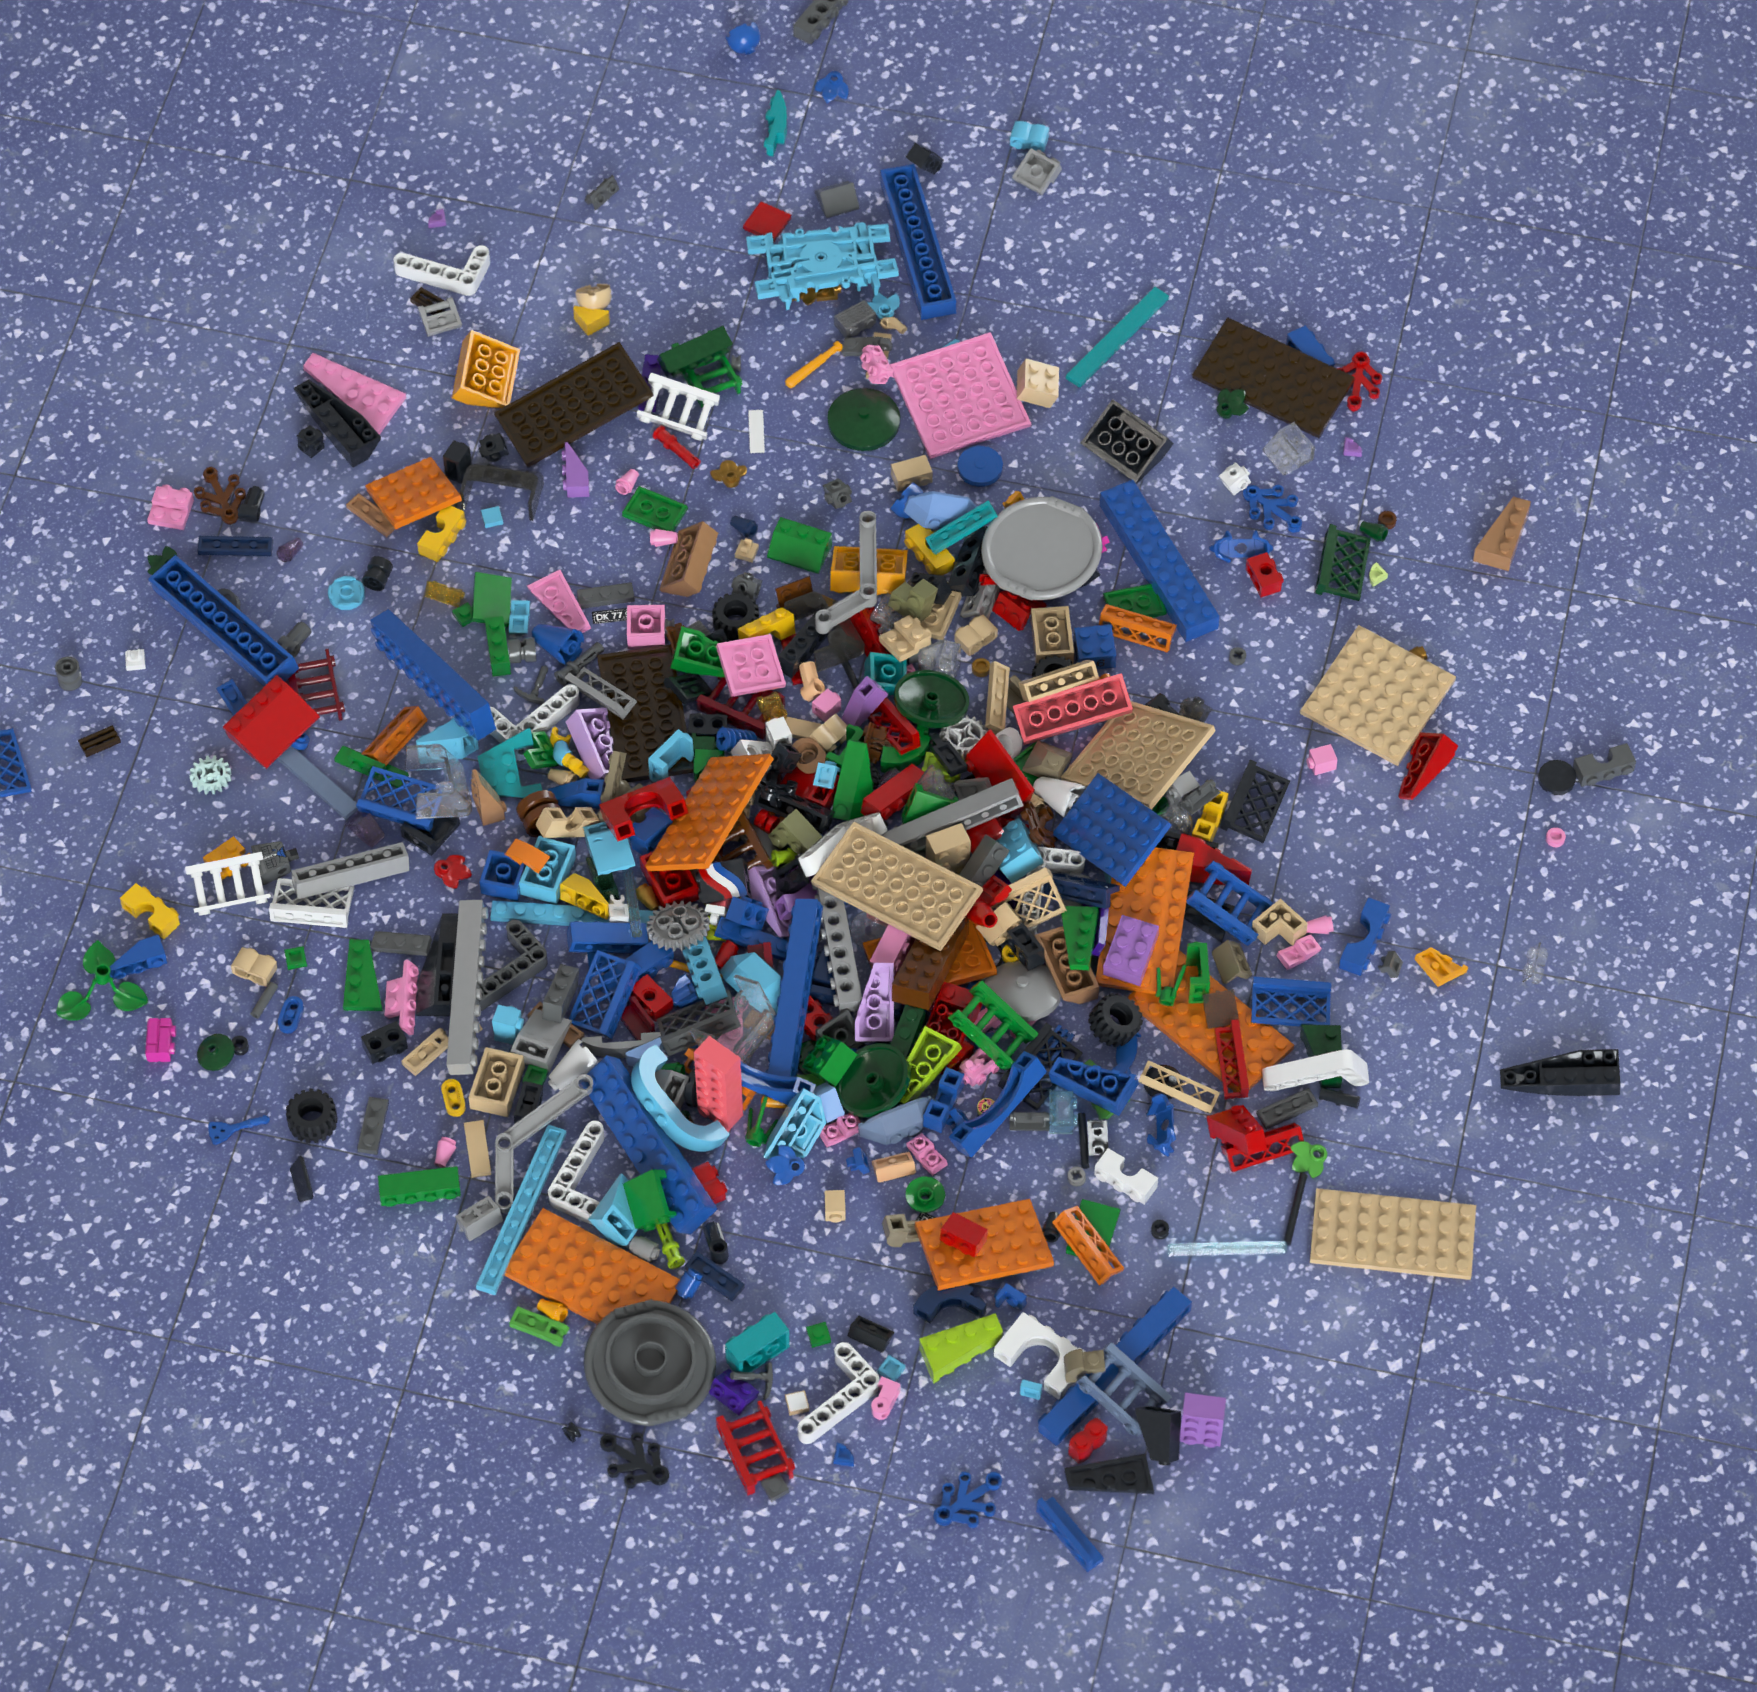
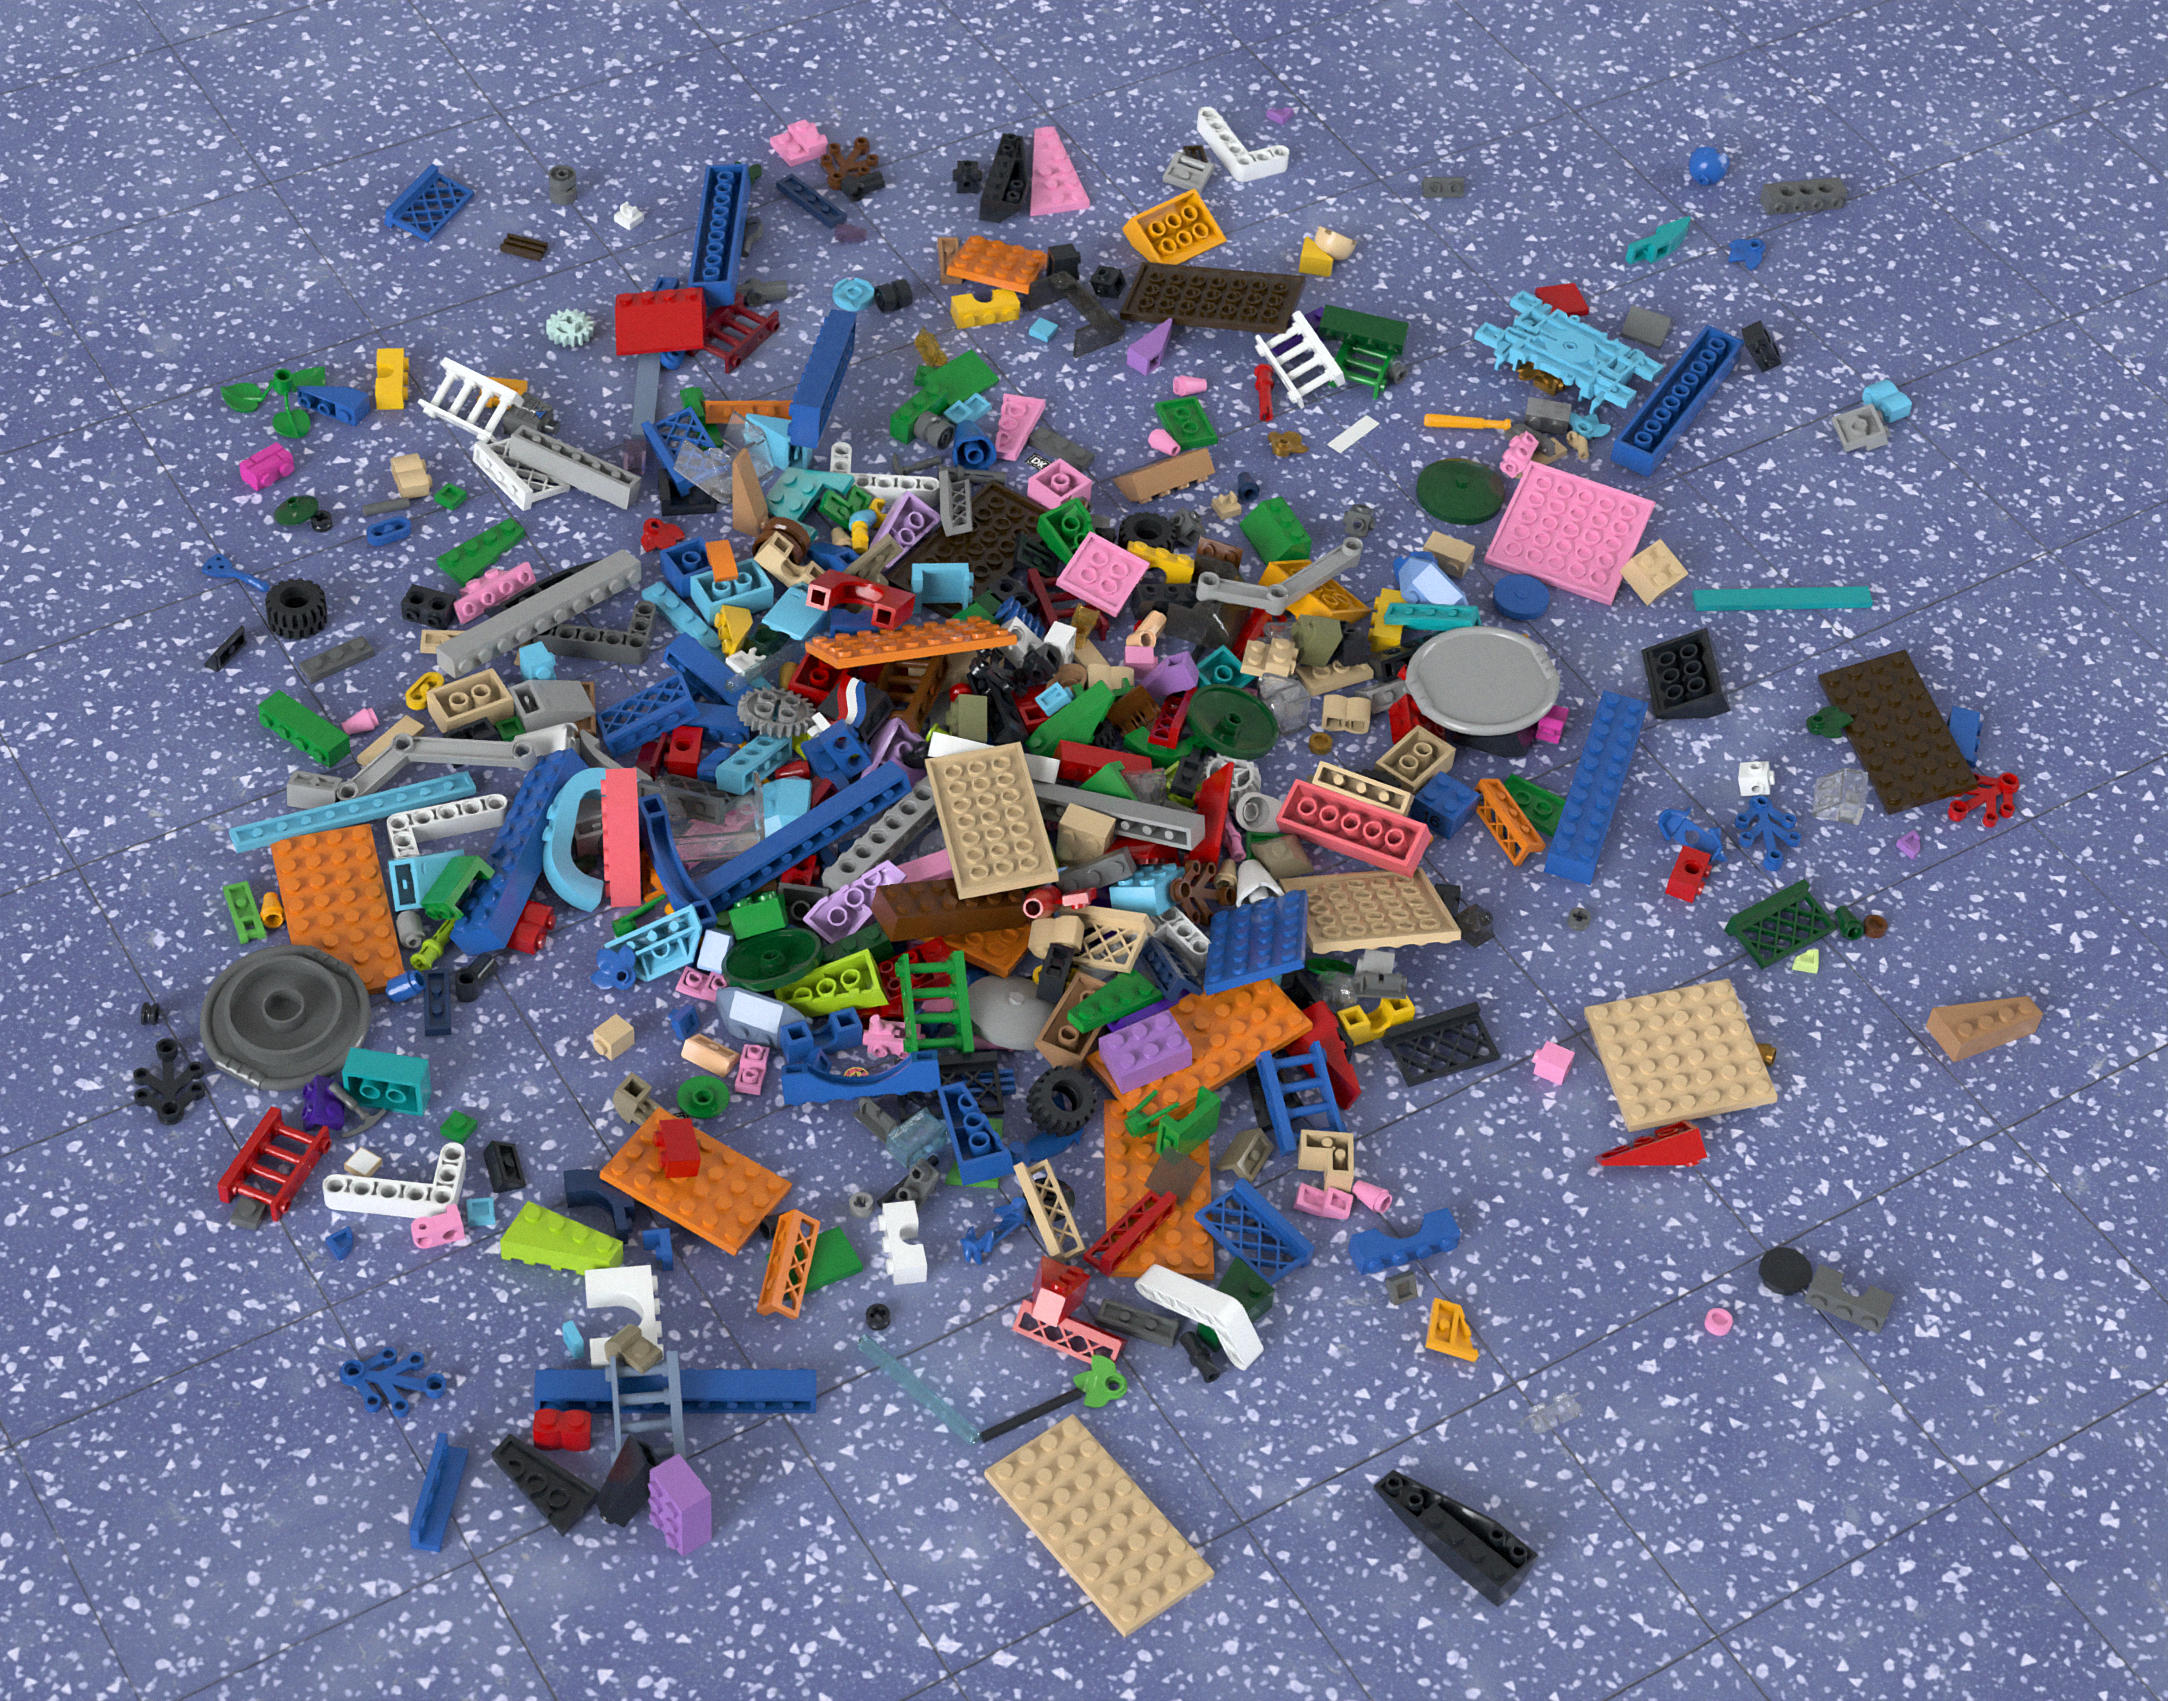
camera: 40 degrees right, 10 degrees down
(401, 943) = (544, 551): dark grey plate -> none
(560, 993) = (610, 682): dark grey brick -> none
(997, 697) = (1297, 767): tan fence -> none

